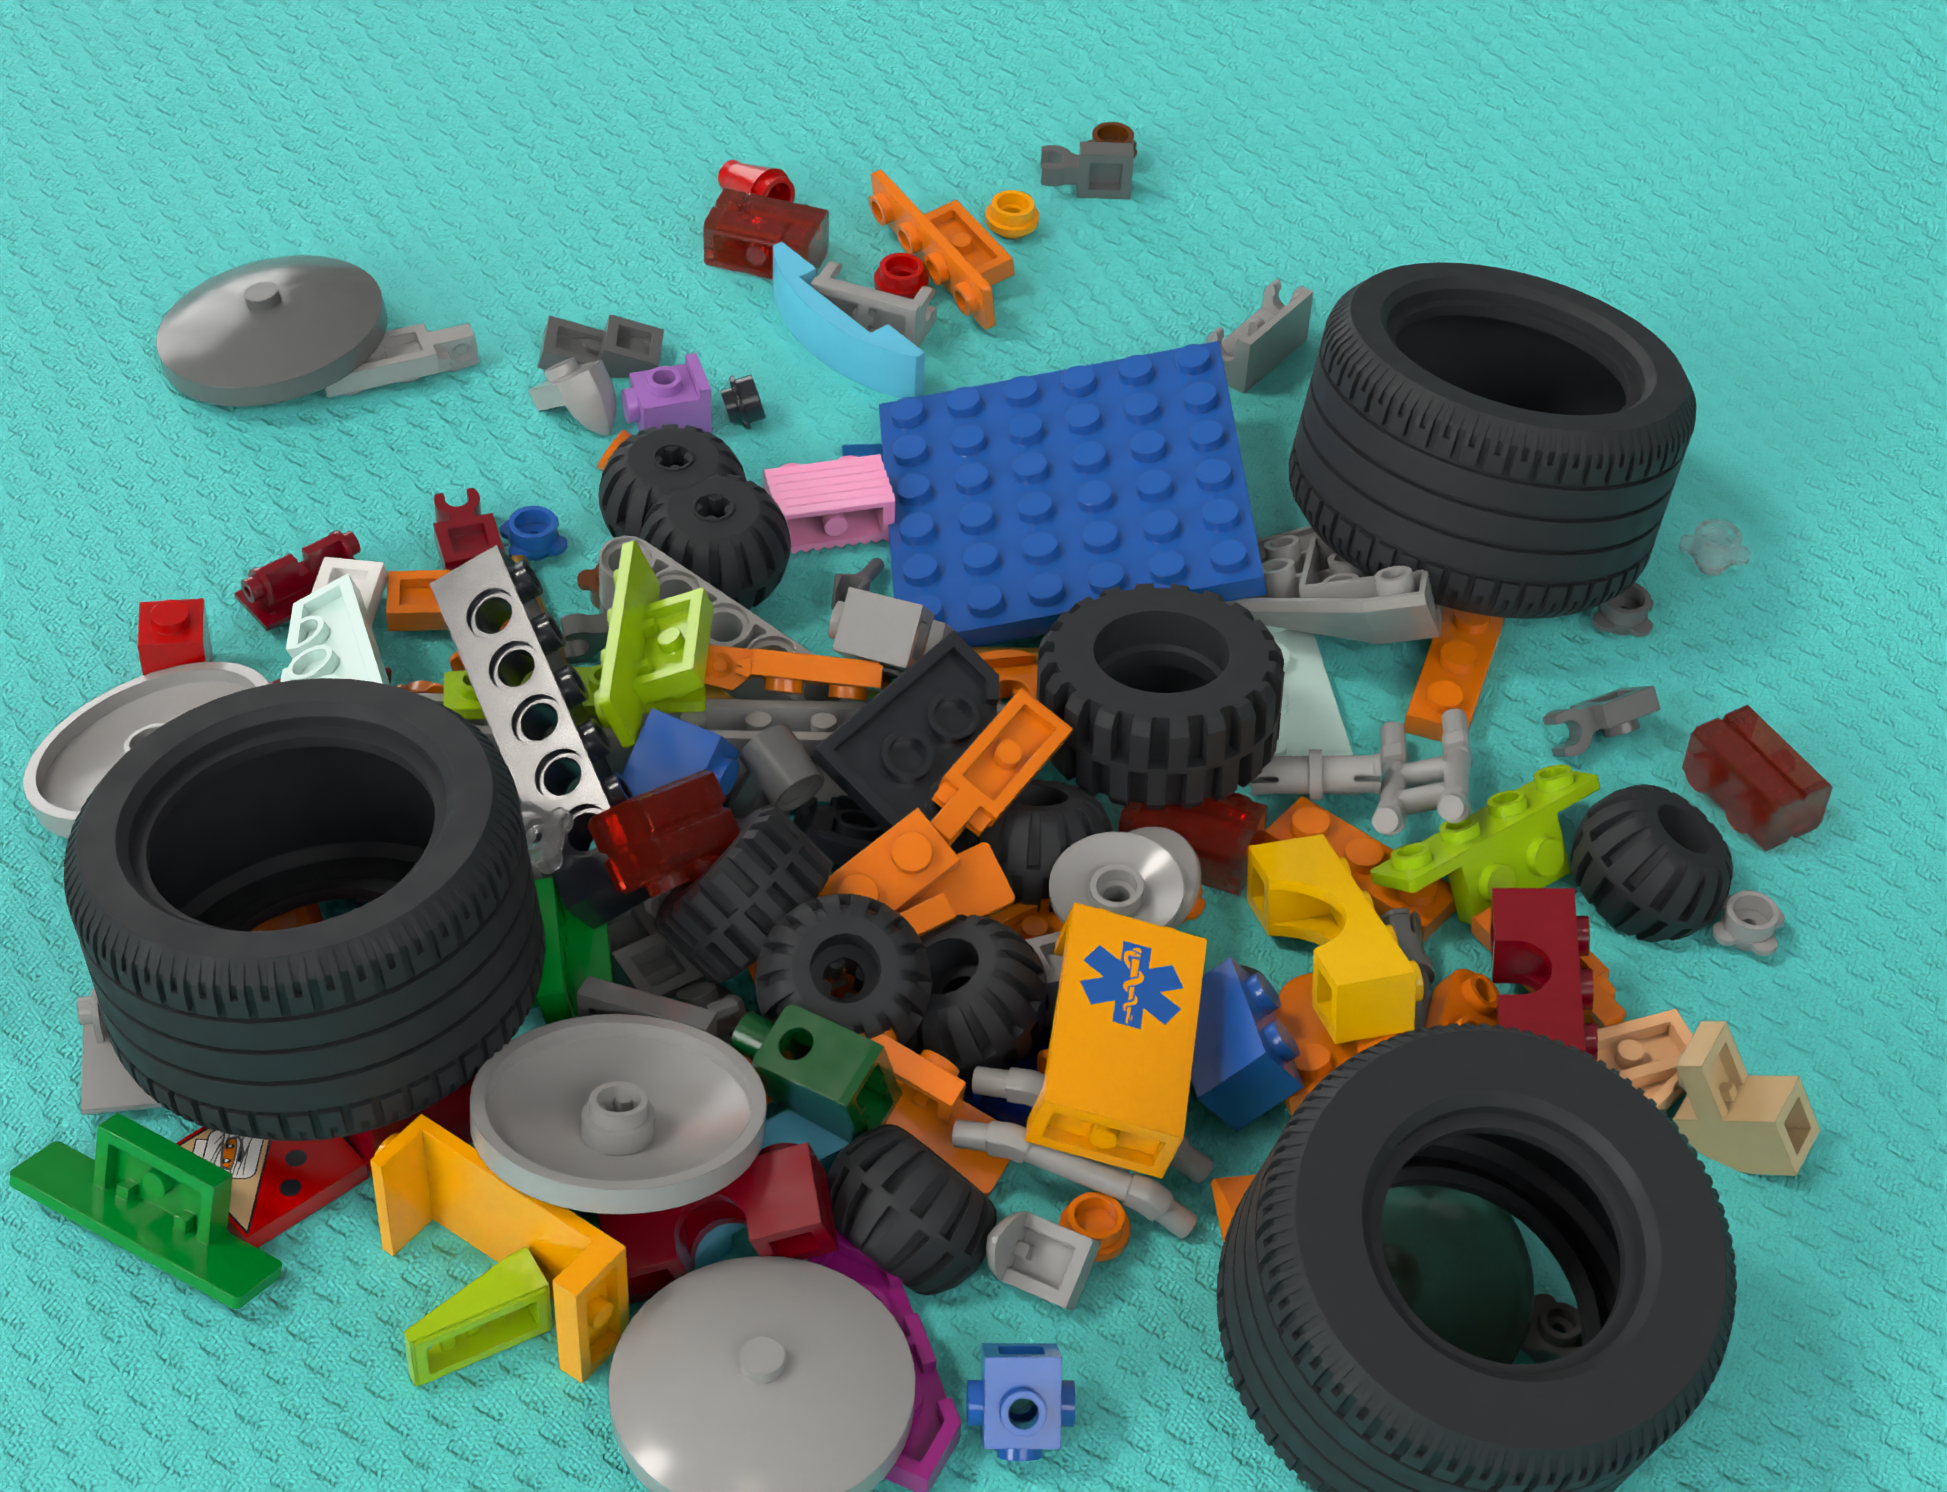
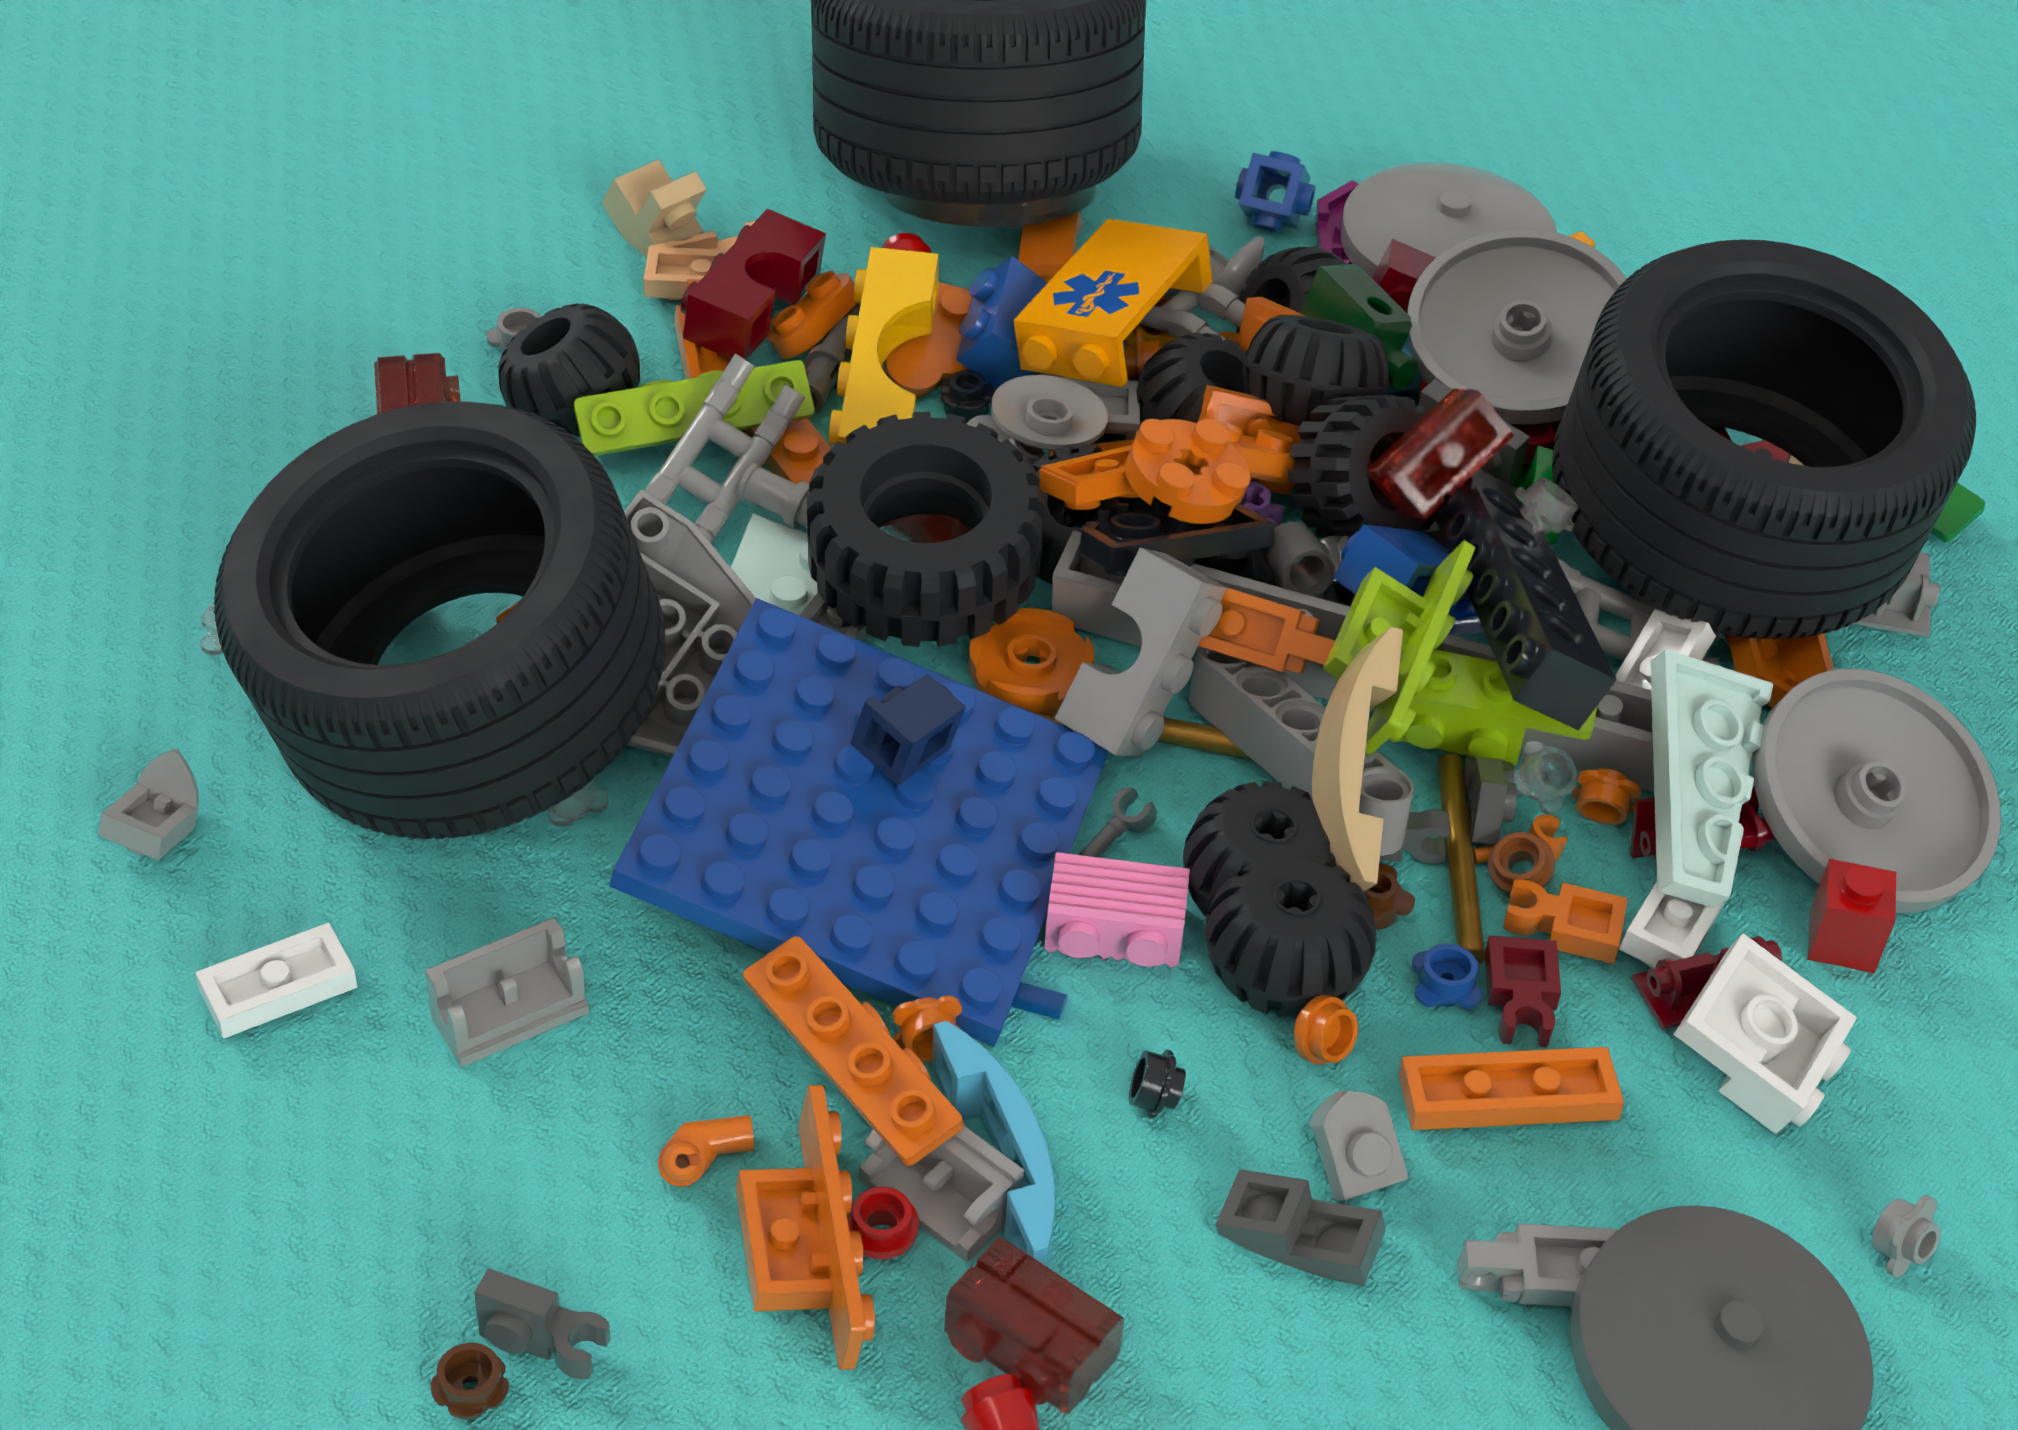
camera: 160 degrees left, 0 degrees up
(127, 432) = (1907, 1233): none -> light grey plate
(249, 513) = (1767, 1034): none -> white plate
(461, 460) = (1510, 1088): none -> orange plate
(659, 535) = (1341, 754): none -> tan slope
(669, 396) = (1248, 1099): medium lavender brick -> none
(915, 719) = (1164, 464): none -> orange plate
(933, 377) = (918, 1019): none -> orange plate
(967, 338) = (854, 1050): none -> orange bracket
(1012, 214) = (682, 1274): light orange plate -> none
(1057, 294) = (699, 1144): none -> orange arm
(1060, 497) = (908, 727): none -> dark blue brick

